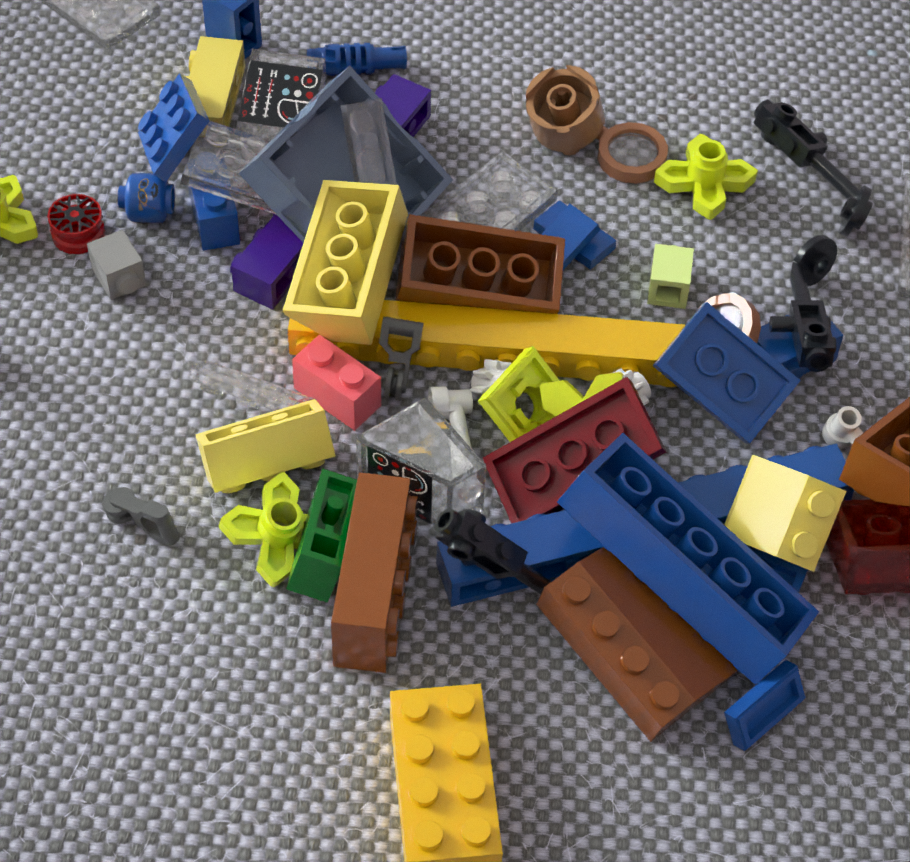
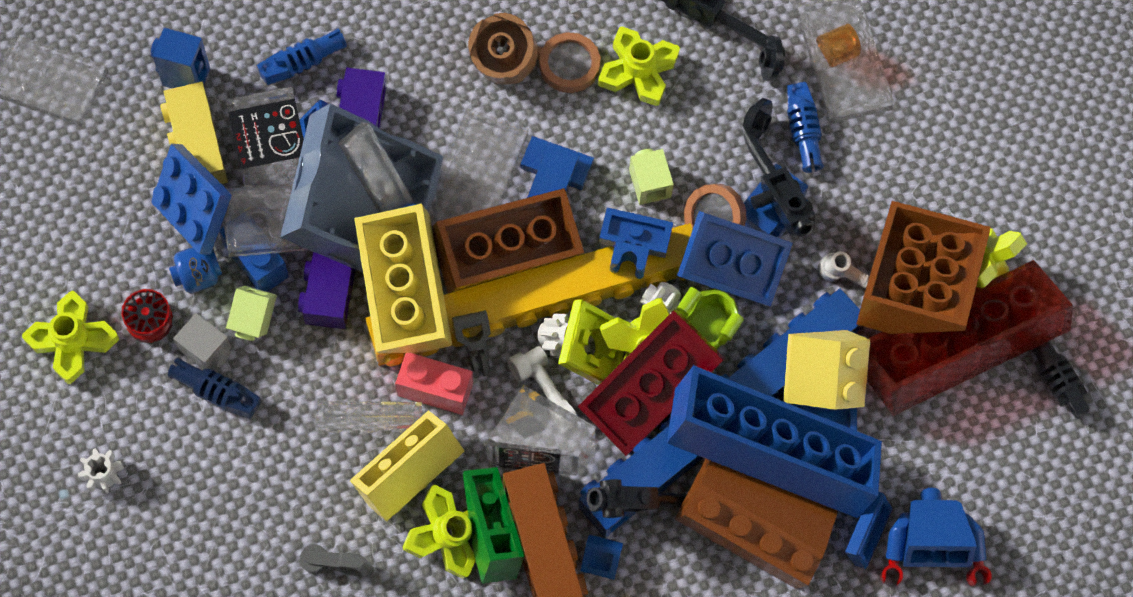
camera: 25 degrees left, 15 degrees up
(107, 310) = (216, 388): none -> dark blue hinge
(180, 252) = (251, 312): none -> yellowish green brick
(435, 616) = (601, 557): none -> blue plate
(620, 313) = (634, 238): none -> blue plate
(677, 419) = (712, 314): none -> lime piece
(846, 739) = (936, 536): none -> blue torso
(866, 287) = (804, 125): none -> blue hinge

